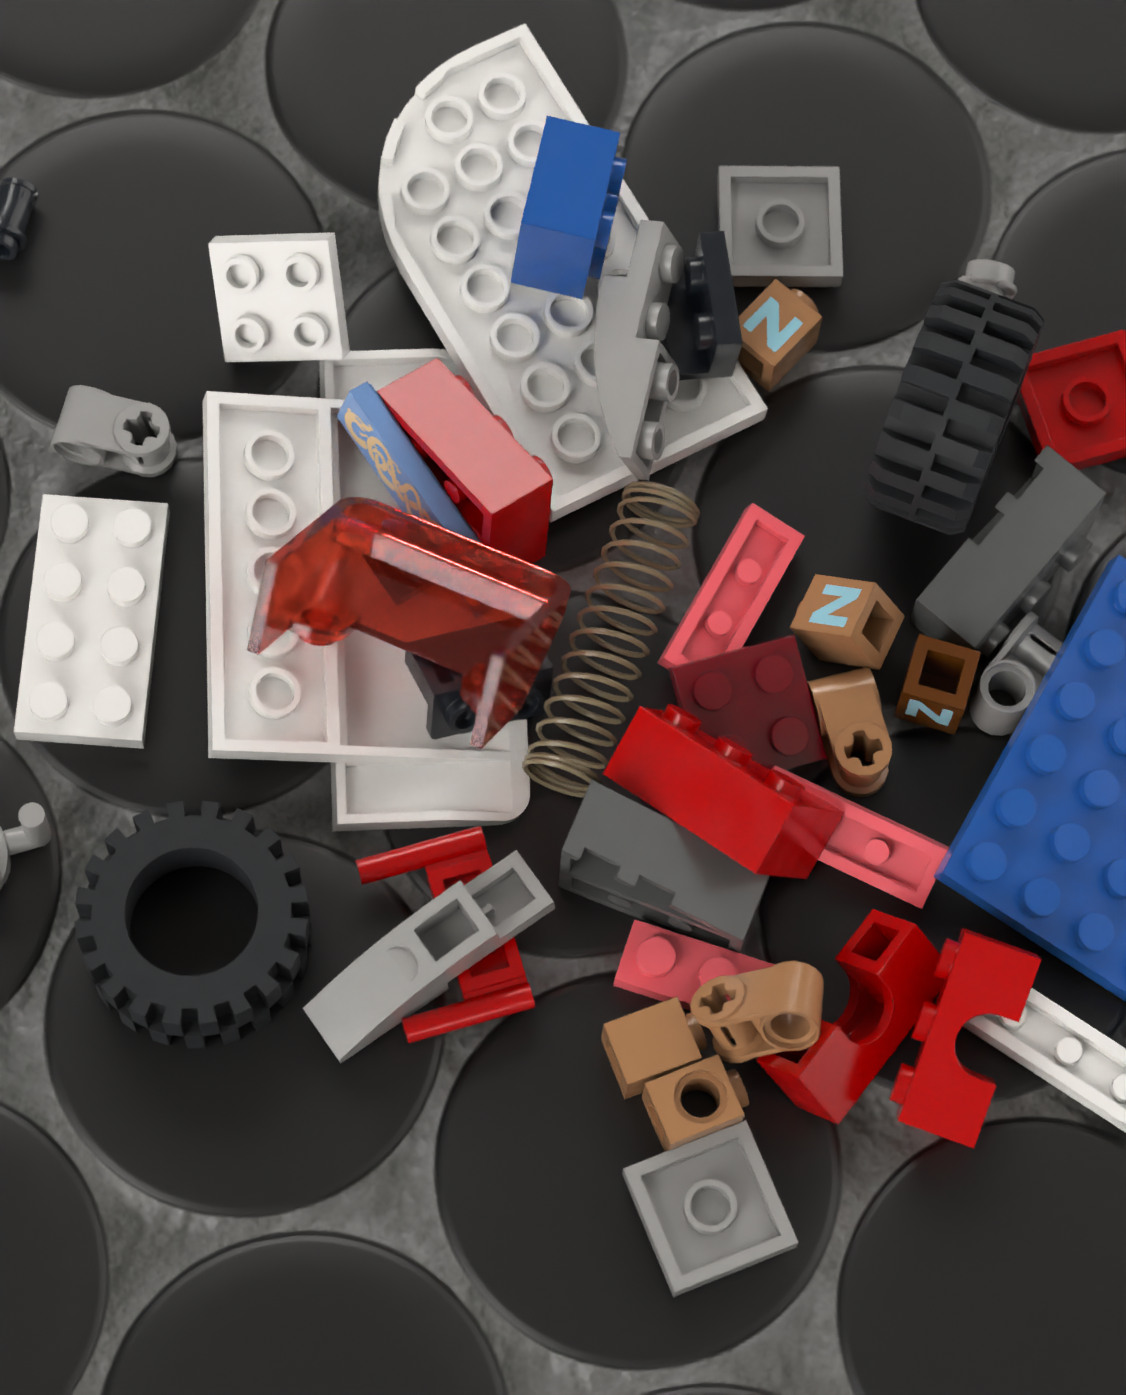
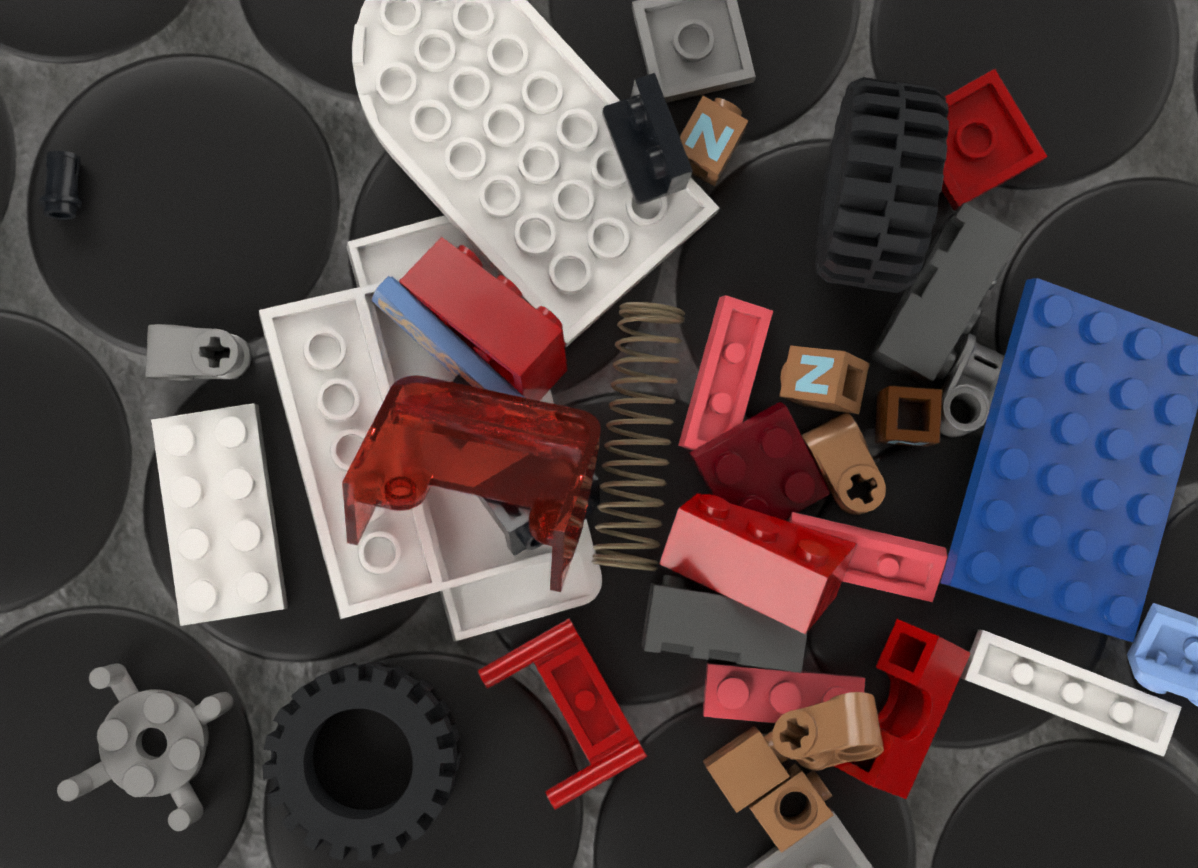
camera: 10 degrees left, 15 degrees up
(279, 297) = (298, 209): white plate -> none
(426, 953) = (556, 740): light grey slope -> none
(569, 208) = (520, 78): blue brick -> none
(630, 362) = (602, 210): light grey slope -> none
(978, 980) = (996, 667): red arch -> none
(991, 276) = (873, 53): light grey plate -> none

